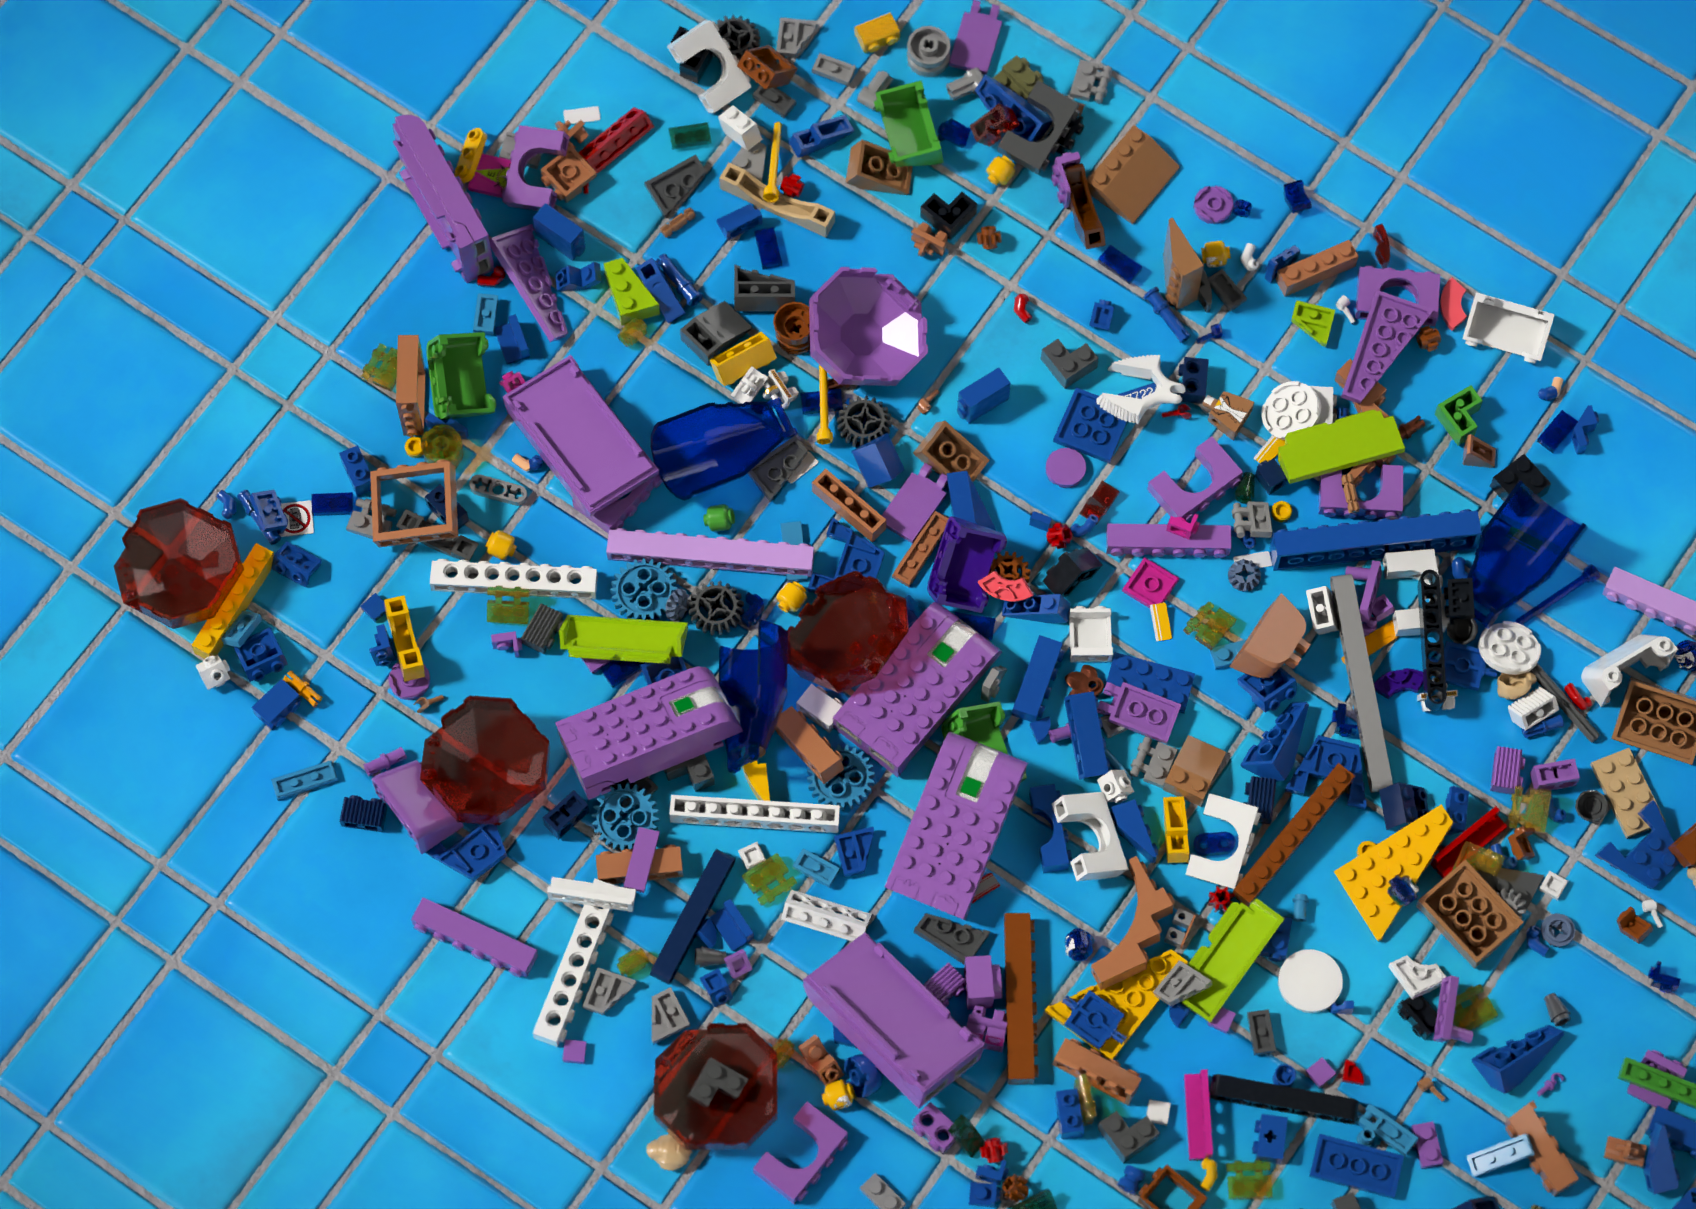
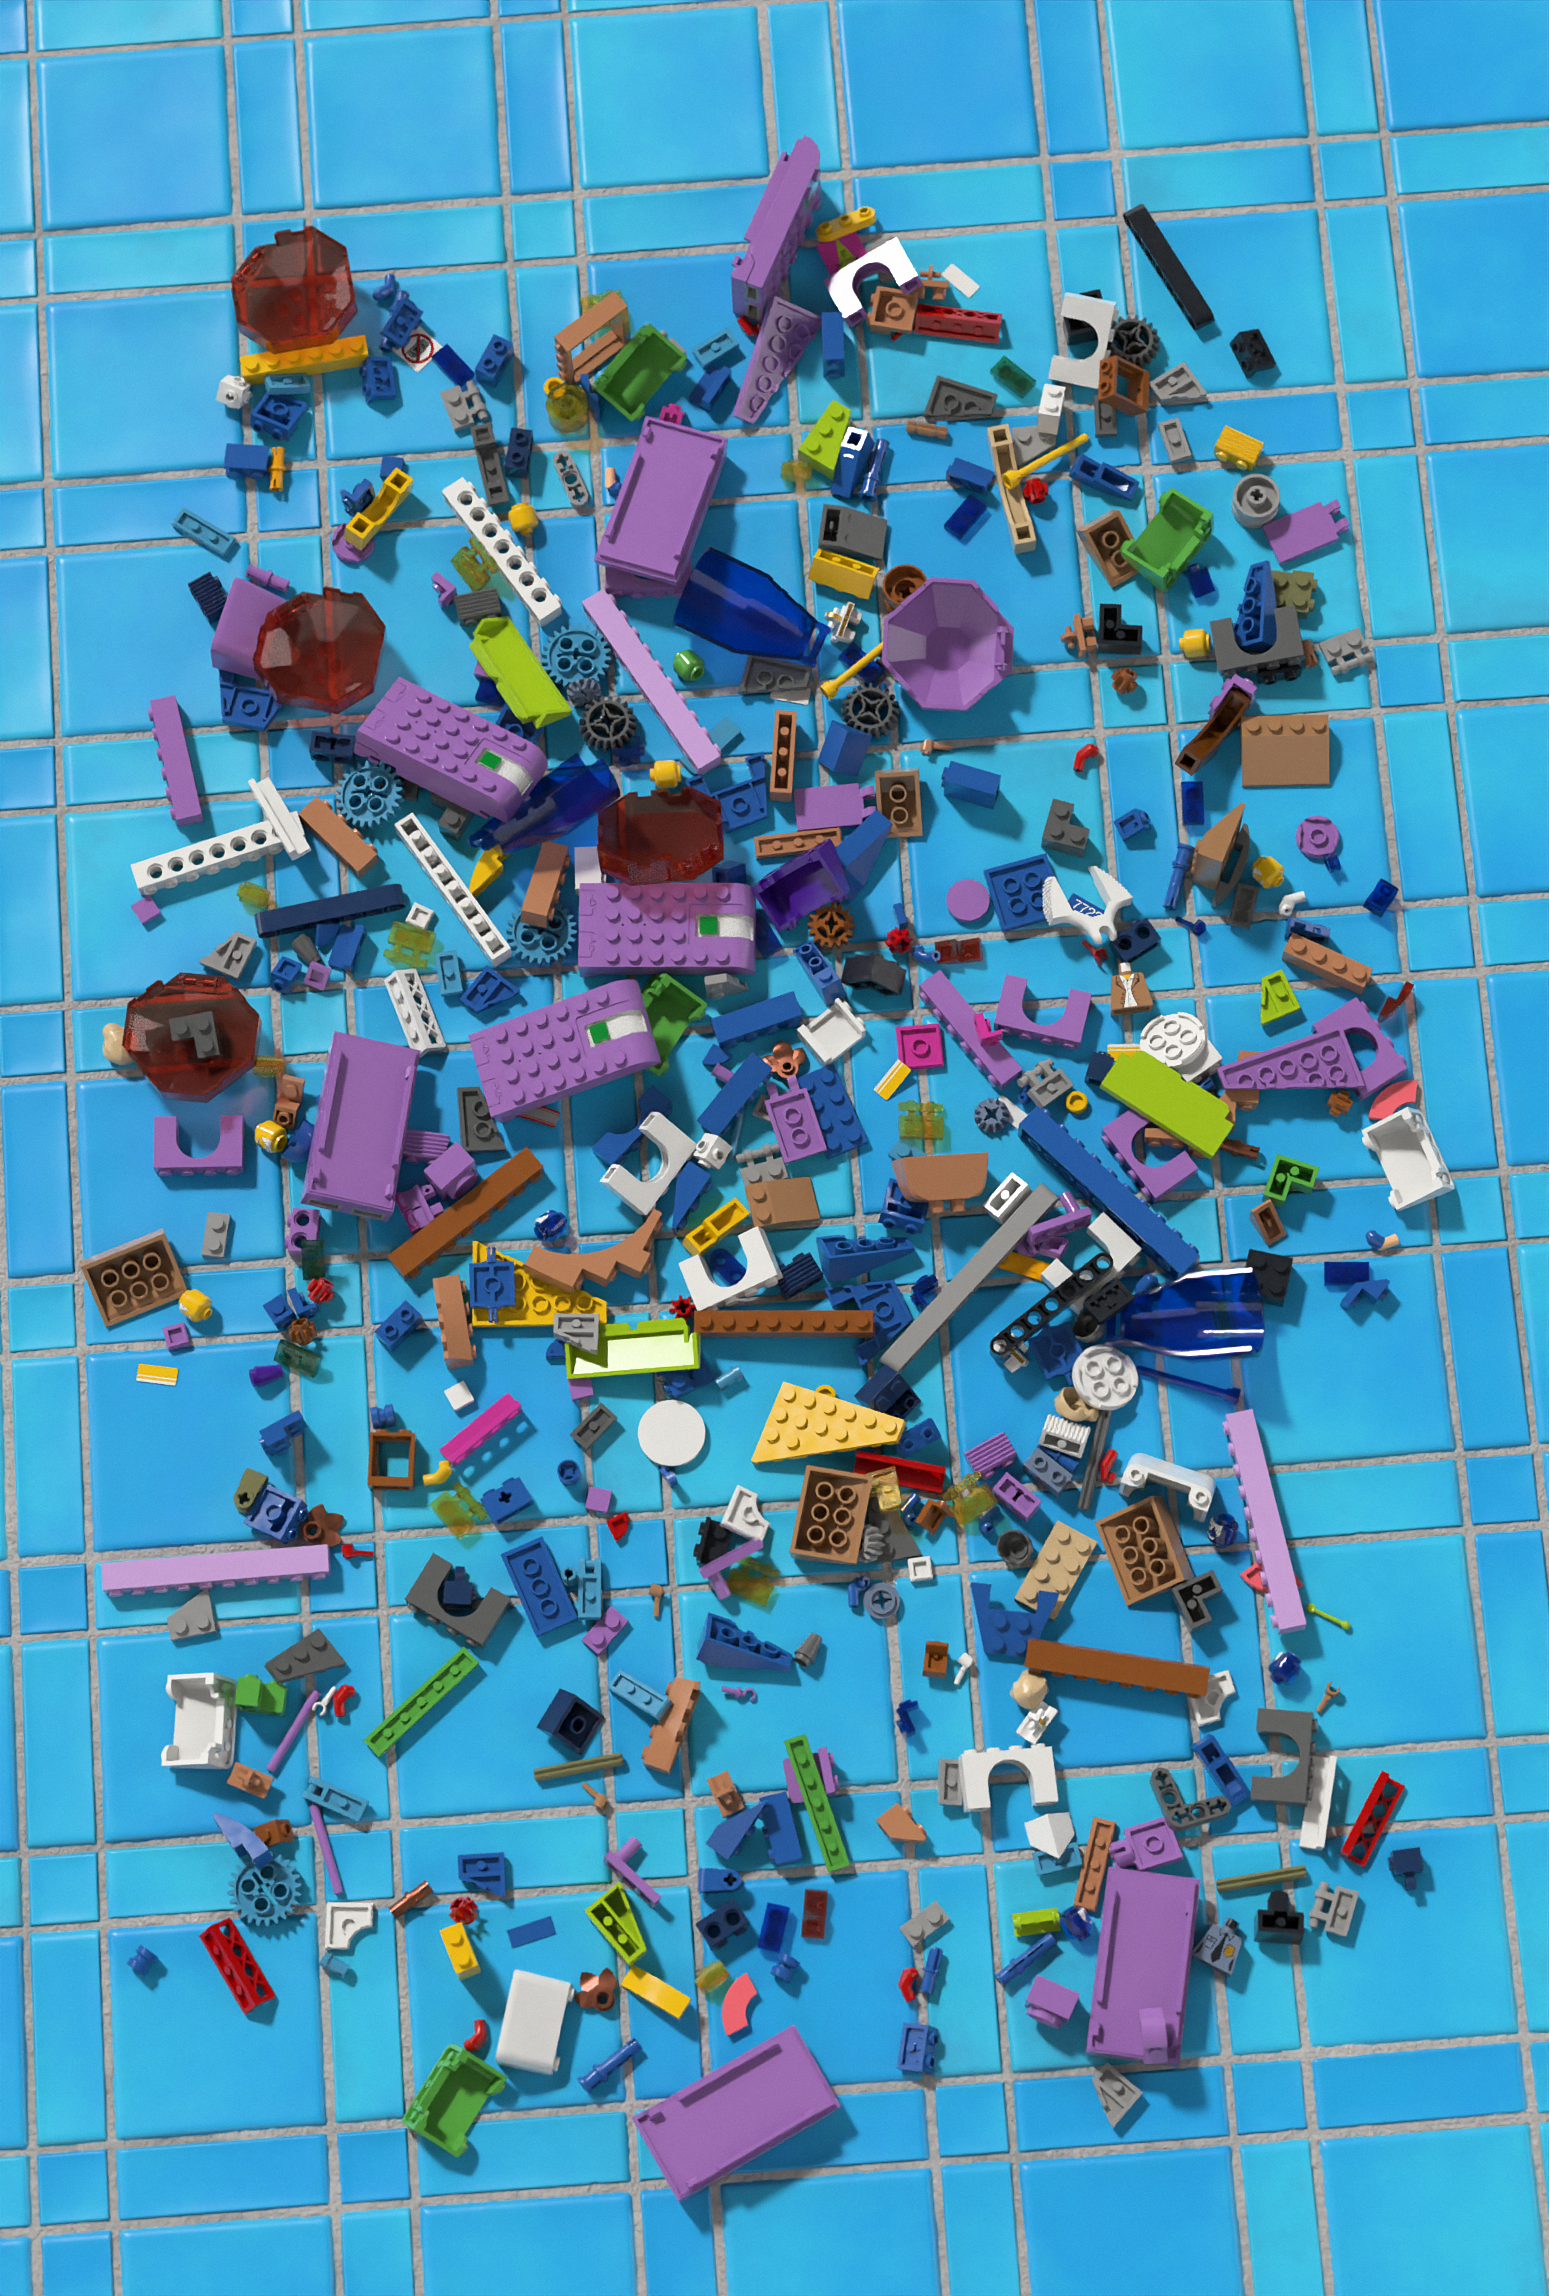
camera: 55 degrees right, 5 degrees up
(421, 534) = (515, 450): nougat window -> none
(426, 702) = (343, 570): medium nougat hand -> none
(573, 278) = (808, 392): blue slope -> none
(606, 991) = (214, 894): light grey wing -> none
(641, 859) = (339, 833): medium lavender tile -> none
(749, 386) = (823, 597): white hips -> none
(761, 292) = (915, 540): dark grey wedge -> none
(879, 83) = (1187, 486): light grey piece -> none
(965, 85) = (1251, 554): light grey piece -> none
(989, 127) = (1229, 603): clear red brick -> none
(1005, 589) = (811, 933): coral tile -> none
(1087, 1105) = (414, 1335): clear yellow plate -> none
(1125, 1140) = (413, 1389): dark grey brick -> none
(1180, 936) = (642, 1297): flat silver piece -> none
(1245, 488) = (1070, 1058): clear green cone -> none
(1284, 1099) = (550, 1487): black beam -> none
(1342, 305) = (1313, 1010): white hand -> none
(1350, 493) = (1132, 1143): medium nougat axle -> none
(1399, 681) = (997, 1308): dark purple tile -> none
(1402, 890) = (803, 1445): clear blue head -> none
(1551, 741) = (1047, 1472): none -> sand blue brick

